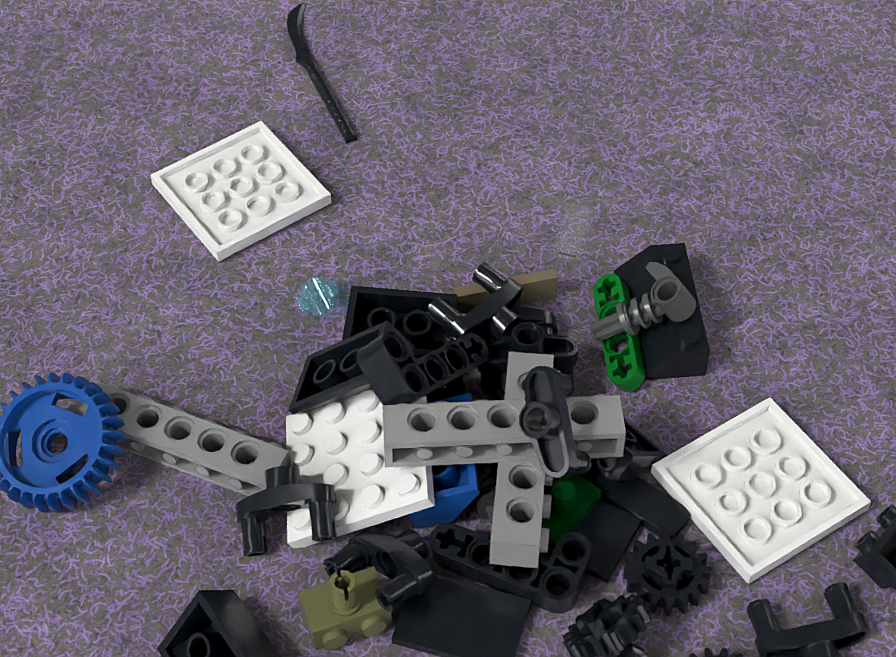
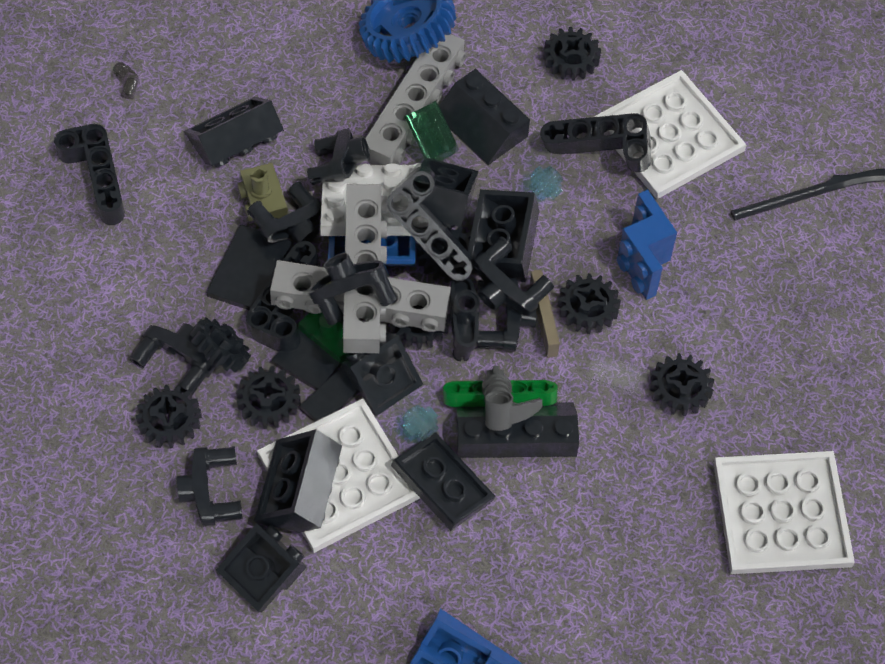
camera: 90 degrees right, 10 degrees up
(114, 278) = (572, 53): none -> black gear
(213, 363) = (483, 117): none -> black slope
(246, 406) = (432, 132): none -> clear green brick
(254, 243) = (595, 139): none -> black beam
(411, 193) = (646, 245): none -> blue bracket
(485, 245) = (602, 305): none -> black gear
(581, 174) = (677, 395): none -> black gear
(676, 403) = (420, 423): none -> clear light blue gear
(716, 102) = (783, 512): none -> white plate
(747, 379) = (443, 481): none -> black tile
(798, 515) = (299, 482): none -> black slope

